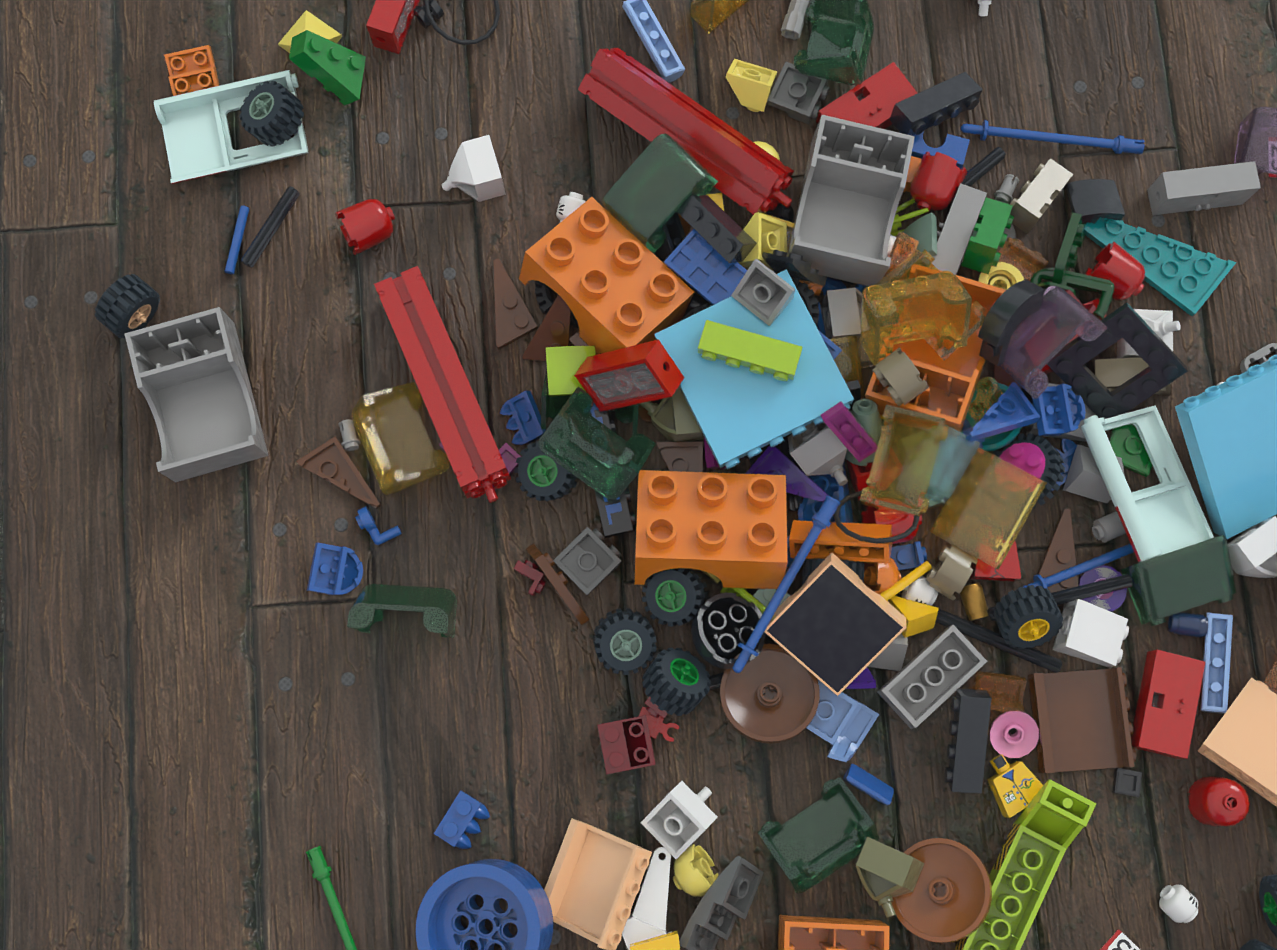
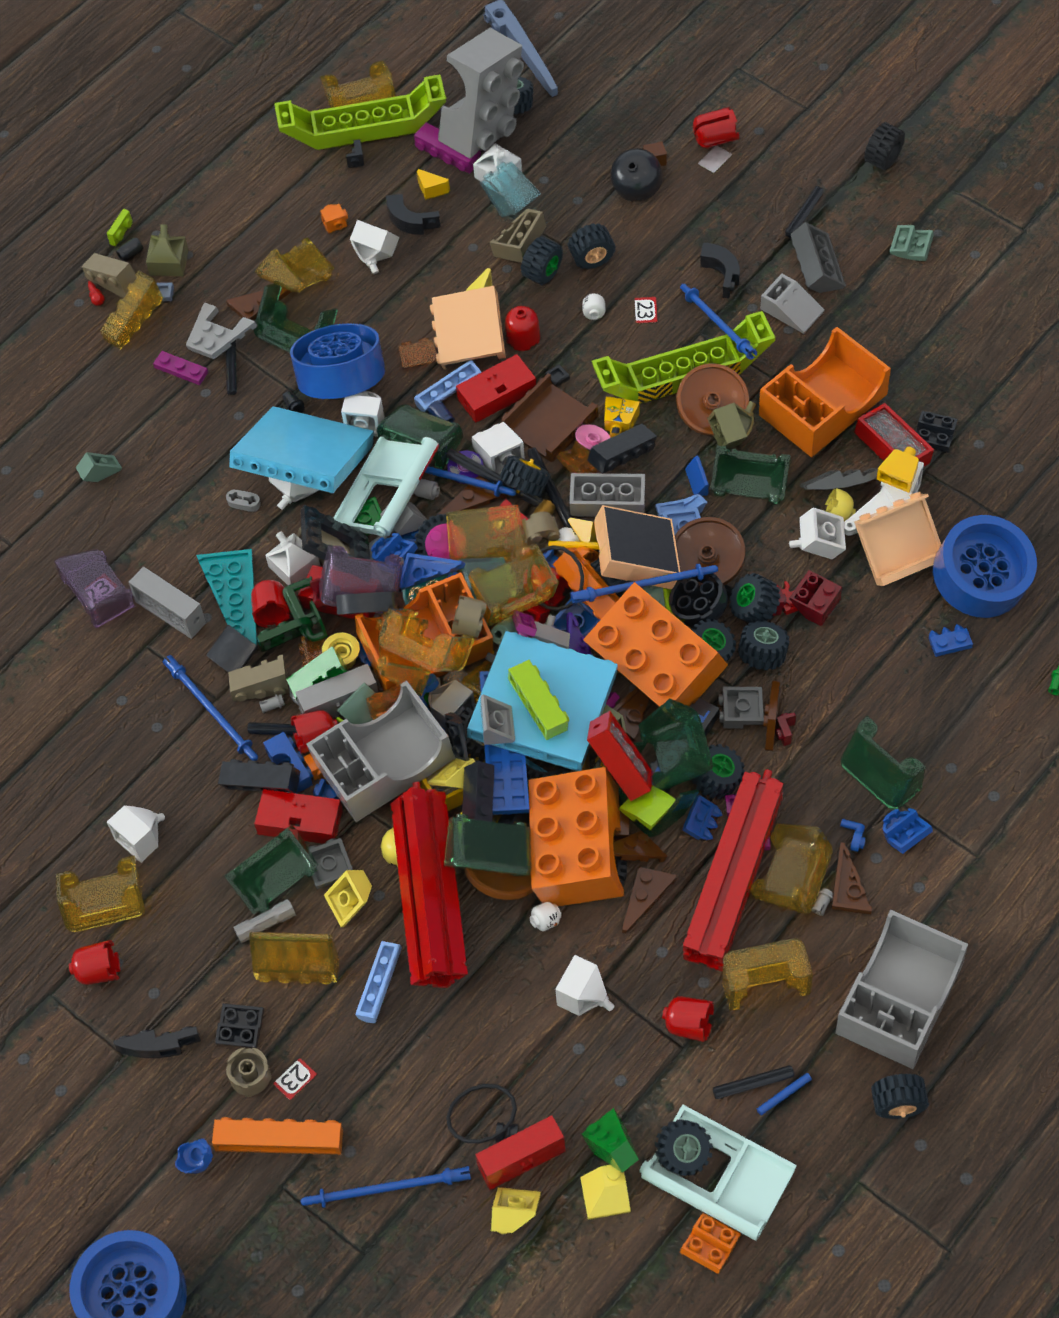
camera: 130 degrees left, 20 degrees down
(339, 321) = (766, 964): none -> clear yellow windscreen

